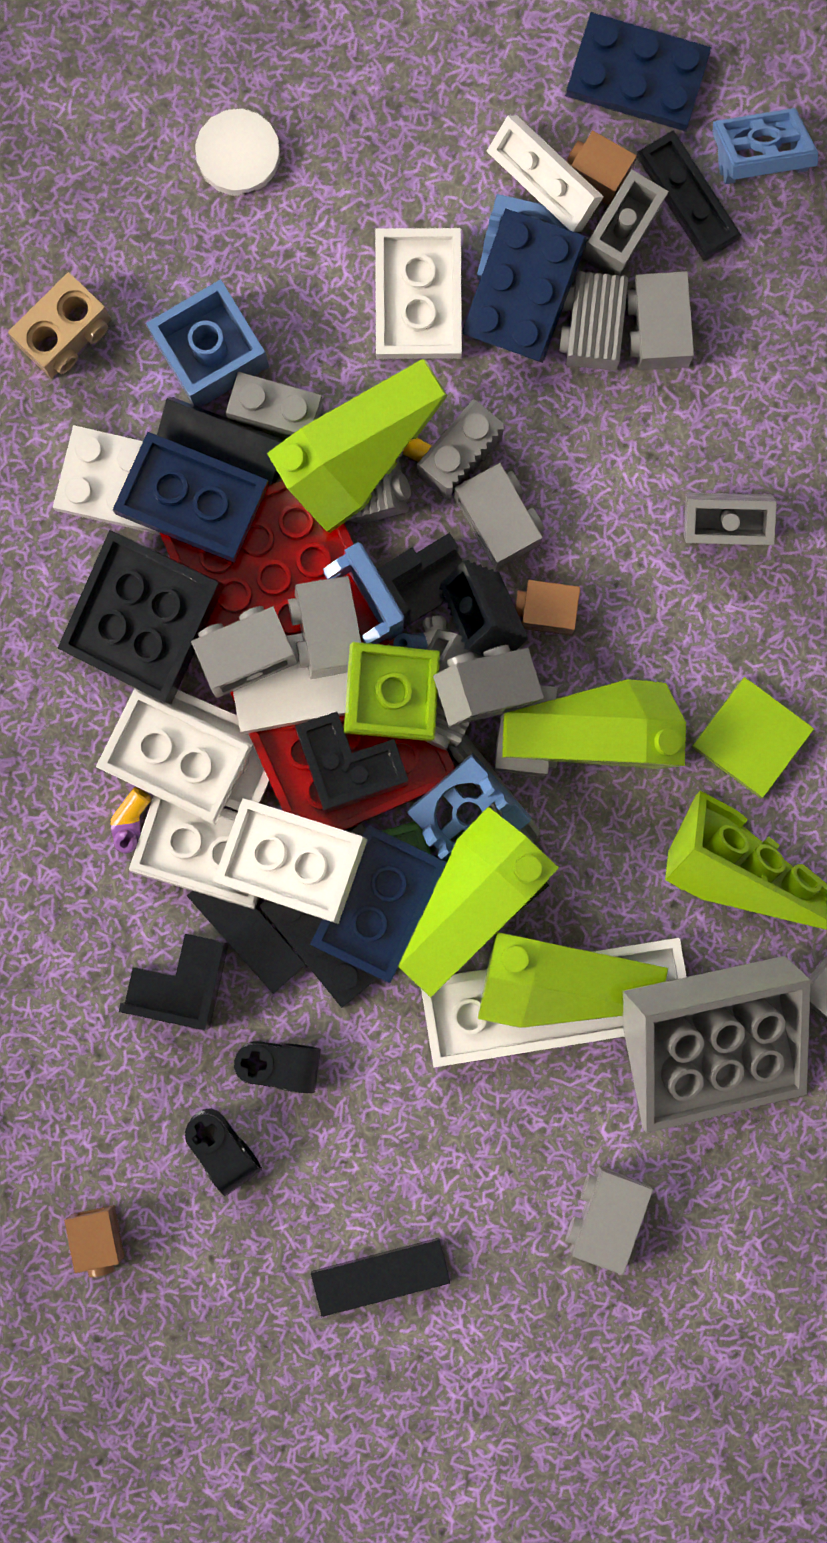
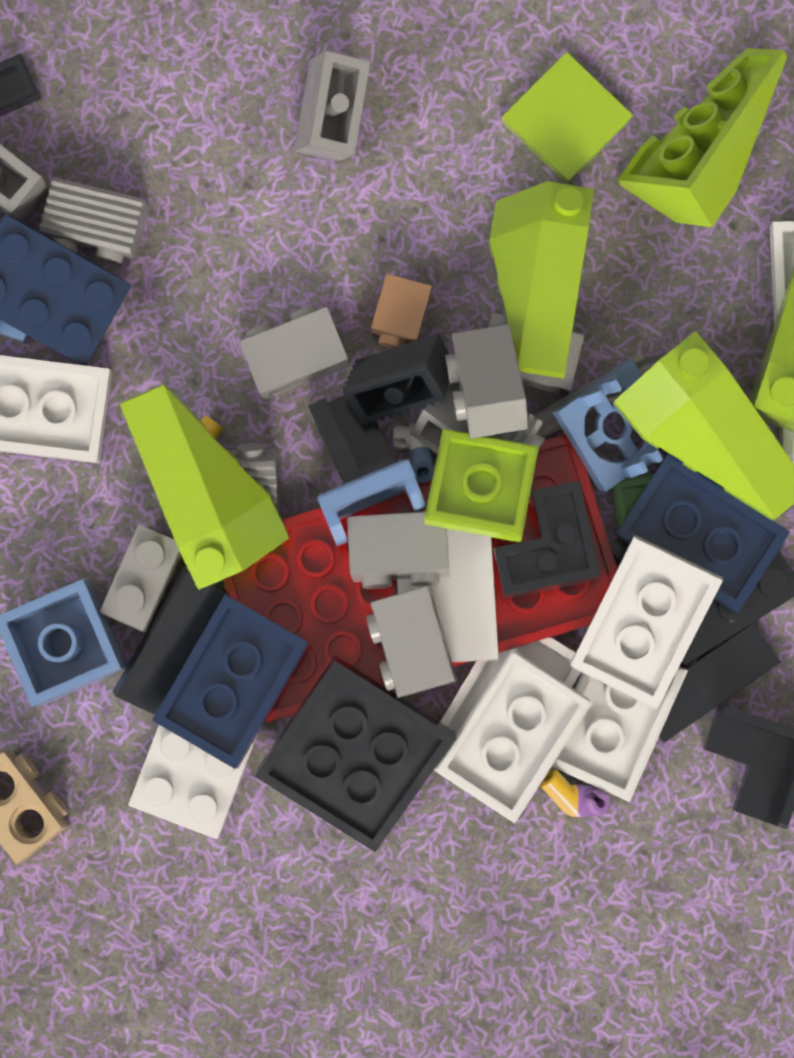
camera: 80 degrees left, 0 degrees up
(460, 449) = (216, 382): light grey brick -> none
(660, 321) = (104, 150): light grey brick -> none

